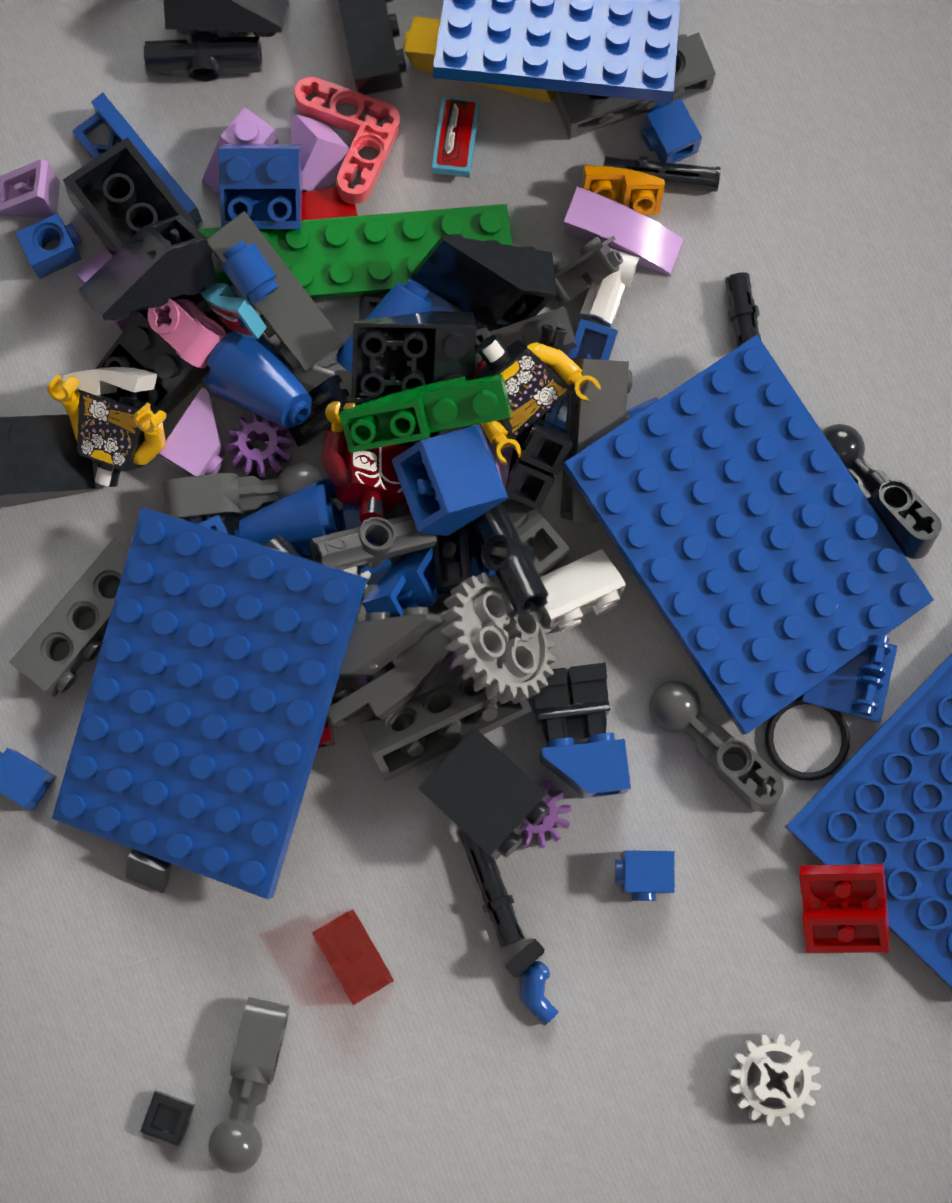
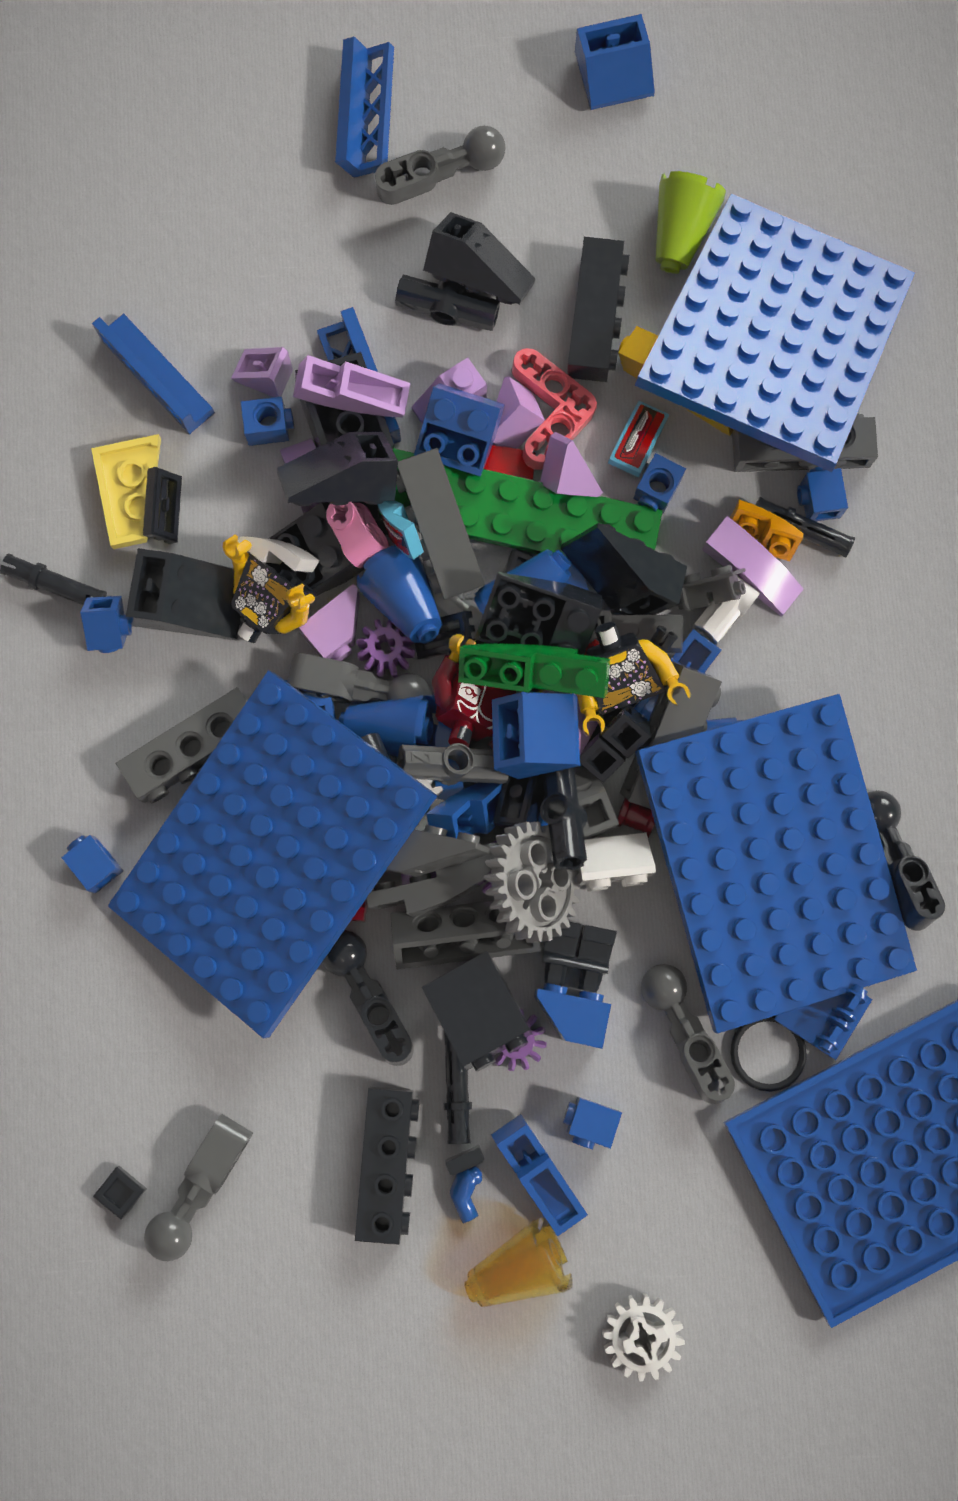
camera: 15 degrees right, 0 degrees up
(129, 179) = (350, 388): none -> lavender slope
(148, 870) = (172, 977): black tile -> none
(249, 272) = (424, 501): blue brick -> none
(329, 790) = (347, 960): none -> black beam
(353, 956) = (320, 1109): clear red hinge -> none
(390, 193) = (566, 469): none -> lavender slope
(441, 992) = (384, 1166): none -> black brick
(493, 162) = (663, 471): none -> blue brick
(586, 536) = (636, 817): none -> dark red bush
(608, 947) = (539, 1175): none -> blue slope
(621, 1051) = (520, 1268): none -> clear yellow cone
(742, 306) = (834, 665): black pin -> none
(844, 908) = (752, 1211): red slope -> none

